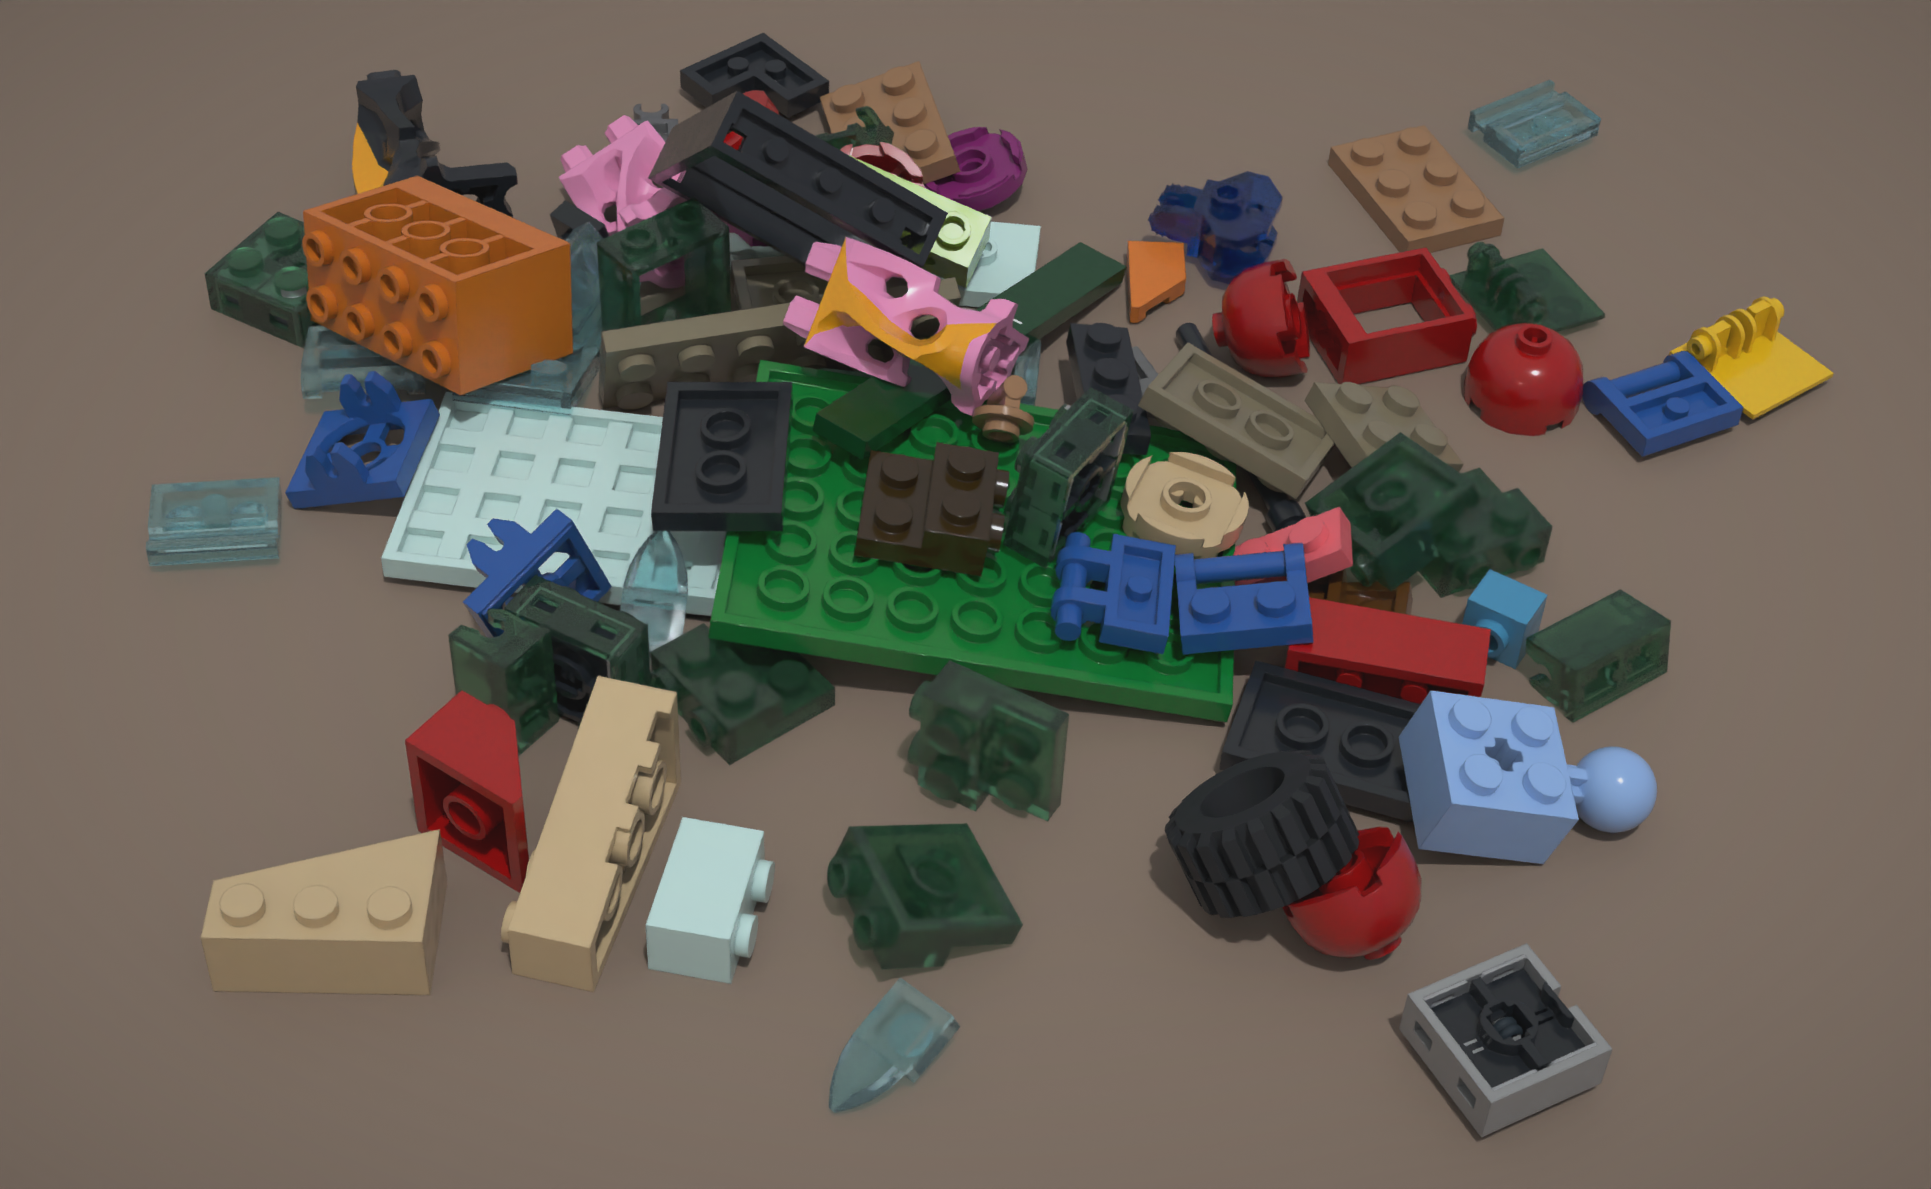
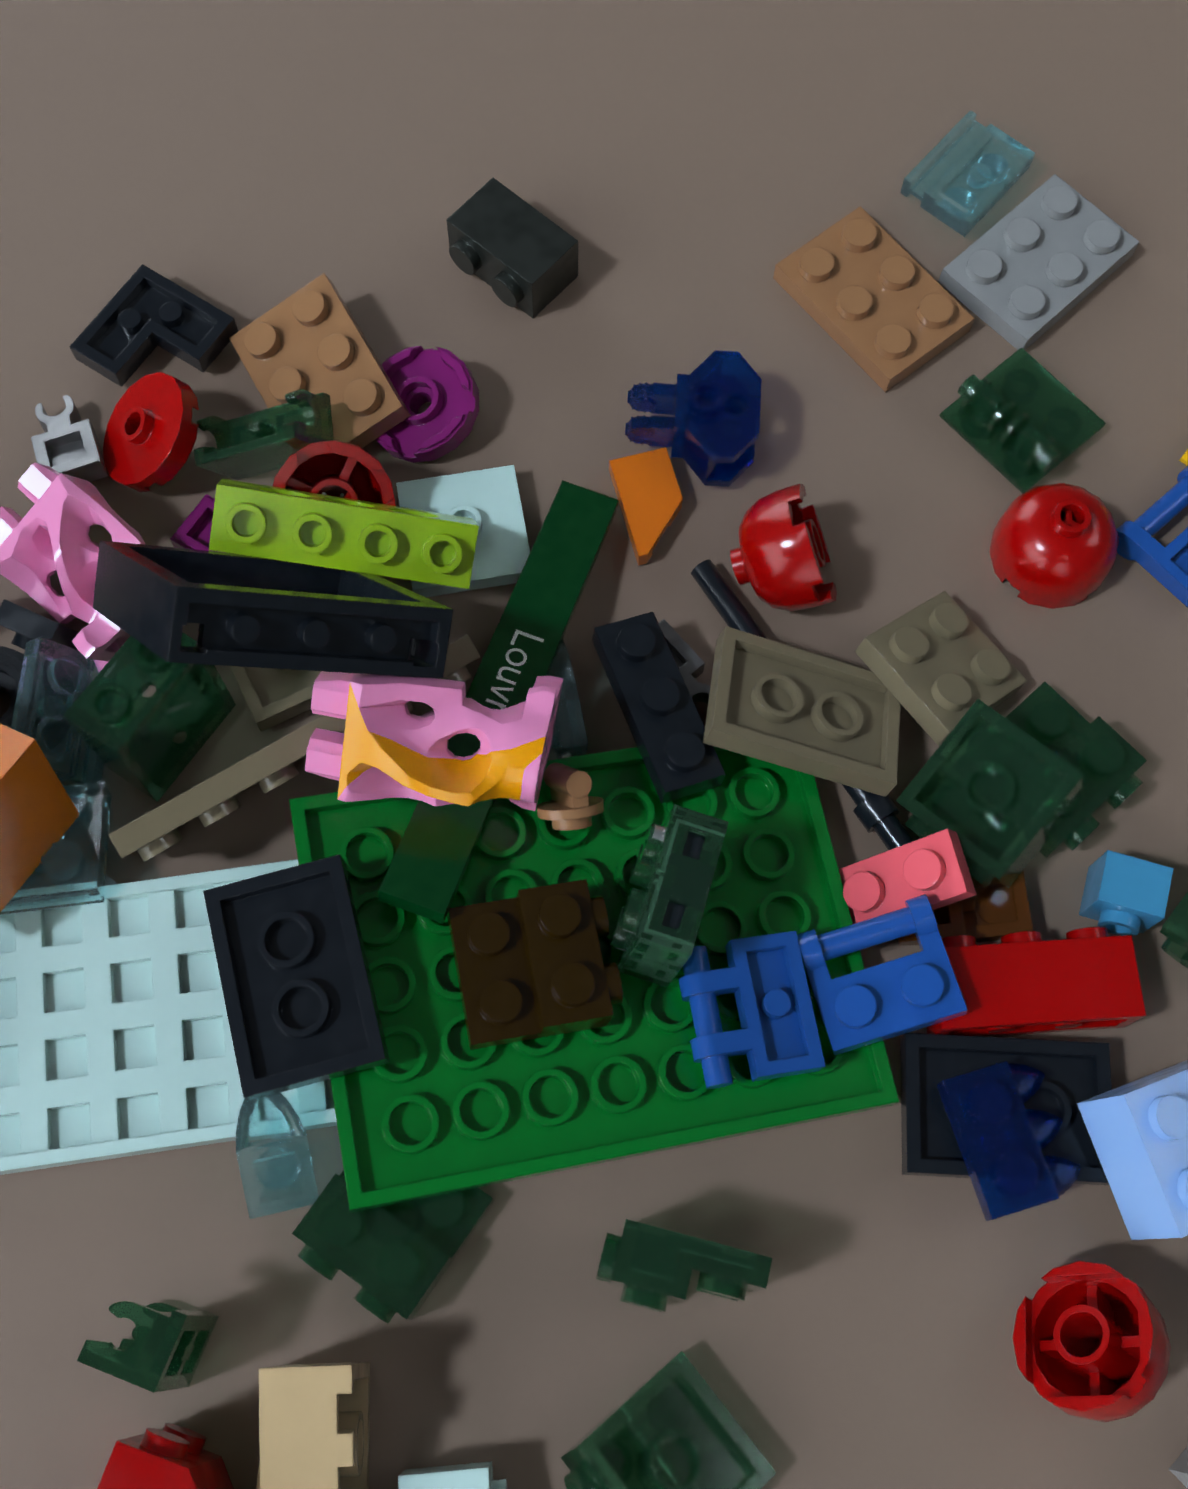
camera: 15 degrees left, 25 degrees up
(520, 561) = (137, 1217): blue piece -> none
(585, 641) = (201, 1279): clear green piece -> none
(1094, 88) = (512, 248): none -> pearl dark grey brick
(1153, 509) = (755, 881): tan plate -> none
(1262, 834) = (1040, 1345): black tyre -> none
(1325, 722) = (1004, 1139): none -> clear blue plate
(1412, 276) = (853, 530): red window -> none
(1582, 198) = (1038, 262): none -> light grey plate

